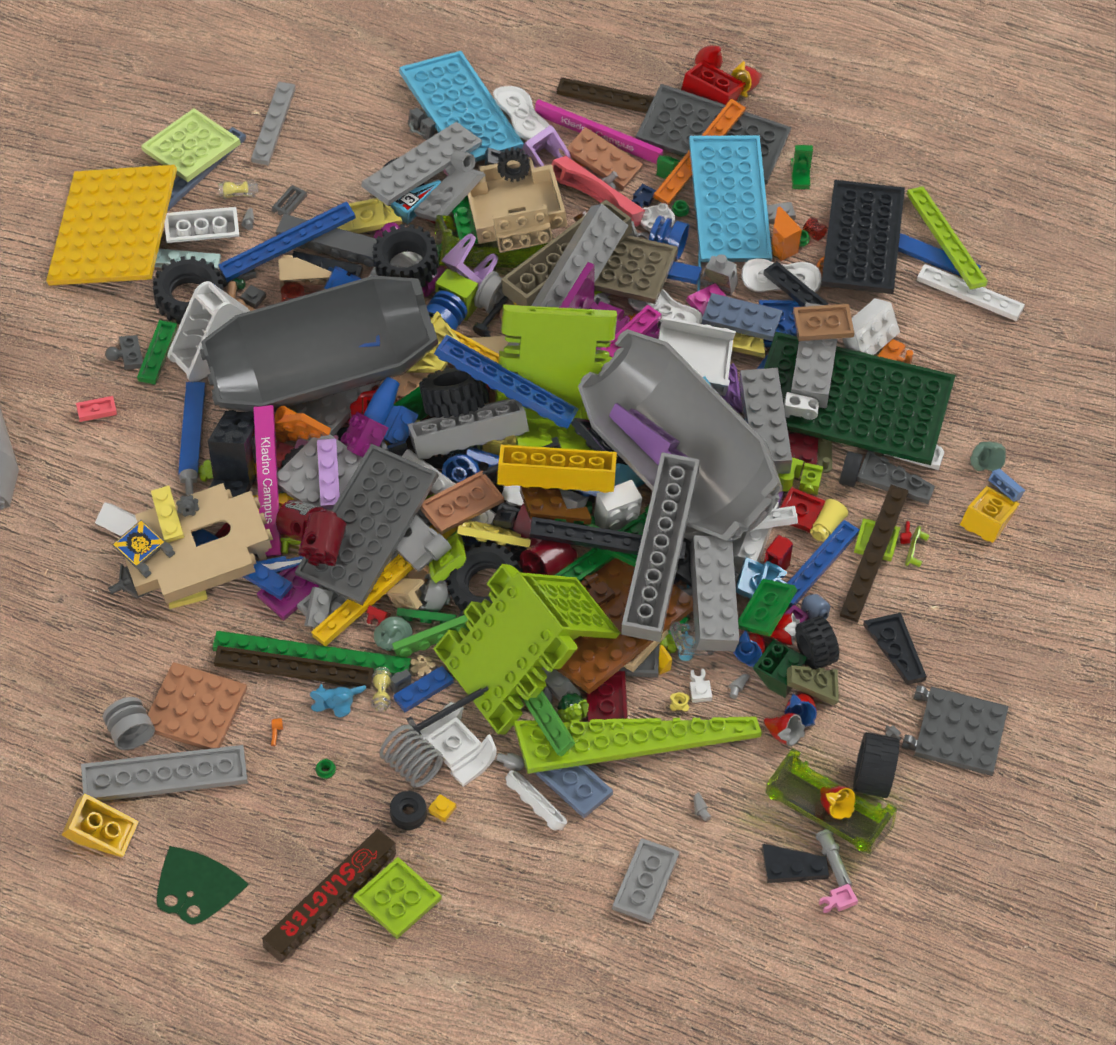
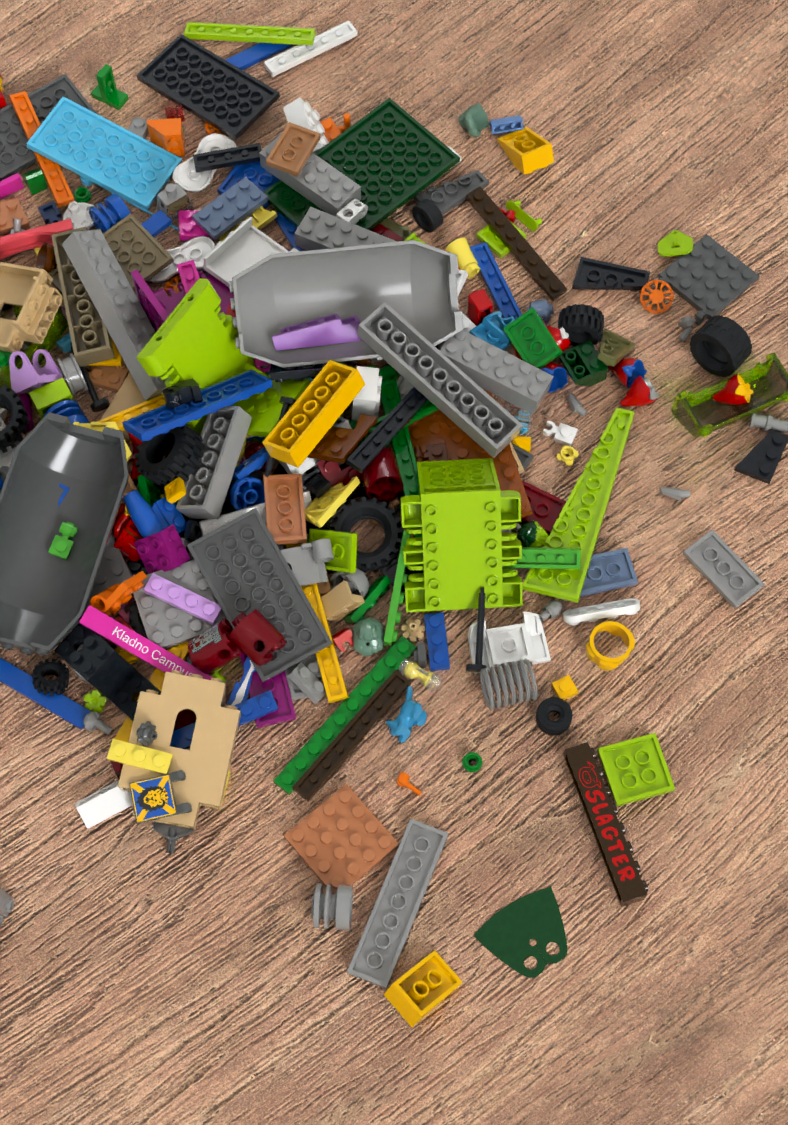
camera: 55 degrees left, 10 degrees up
(203, 418) = (50, 686): none -> black tyre
(325, 368) = (62, 546): none -> bright green plate
(421, 413) = (175, 490): none -> yellow plate
(505, 362) = (182, 393): none -> black leg
(516, 834) = (615, 629): none -> yellow piece
(903, 695) = (656, 296): none -> orange wheel
(982, 685) = (677, 239): none -> lime piece

